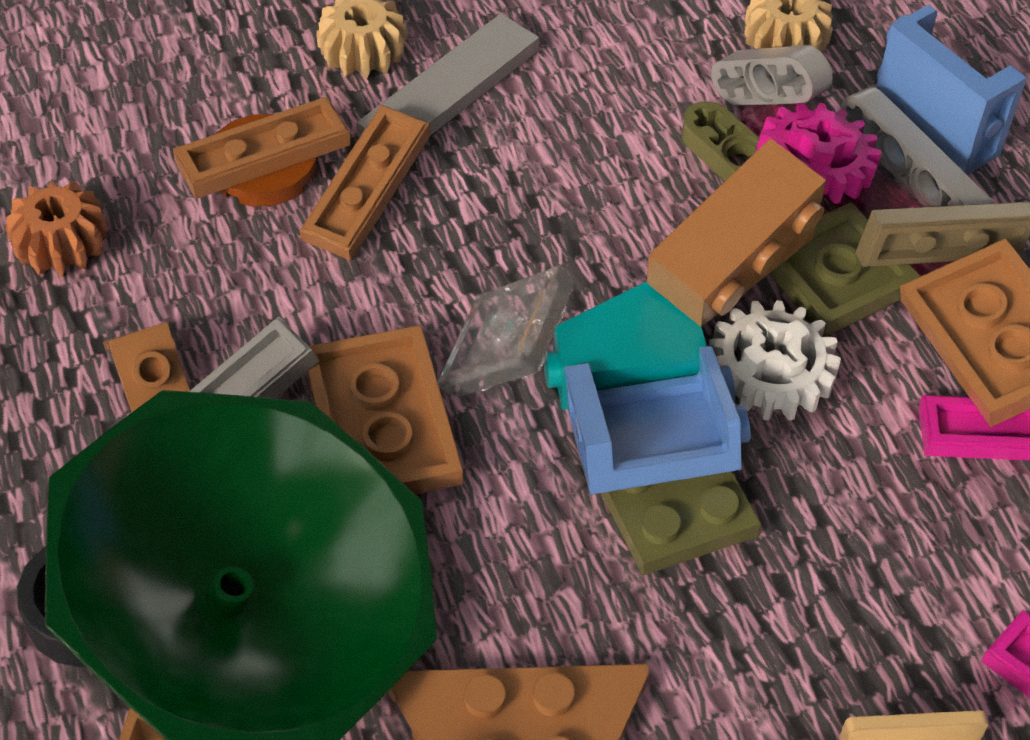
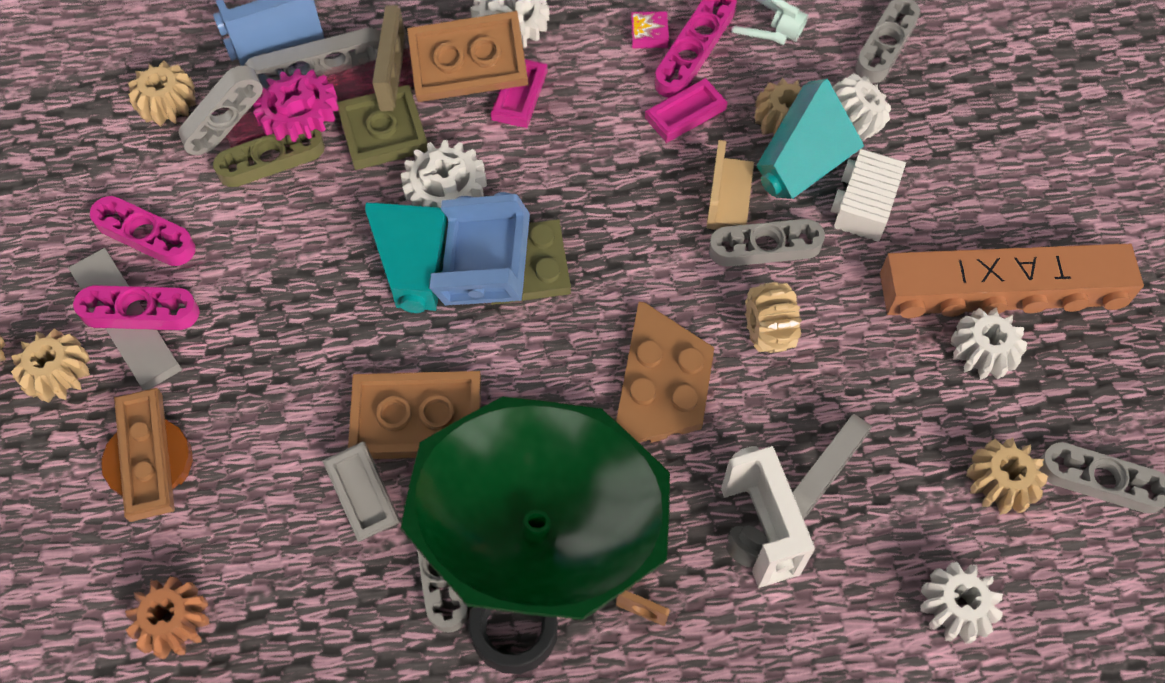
camera: 75 degrees left, 10 degrees up
(147, 363) = (321, 563): medium nougat bracket -> none
(365, 182) = (203, 388): medium nougat tile -> none
(451, 102) = (122, 296): none -> dark pink beam
(507, 333) = (382, 319): clear plate -> none
(585, 84) = (135, 217): none -> dark pink beam
(738, 234) = (368, 157): medium nougat wedge -> none

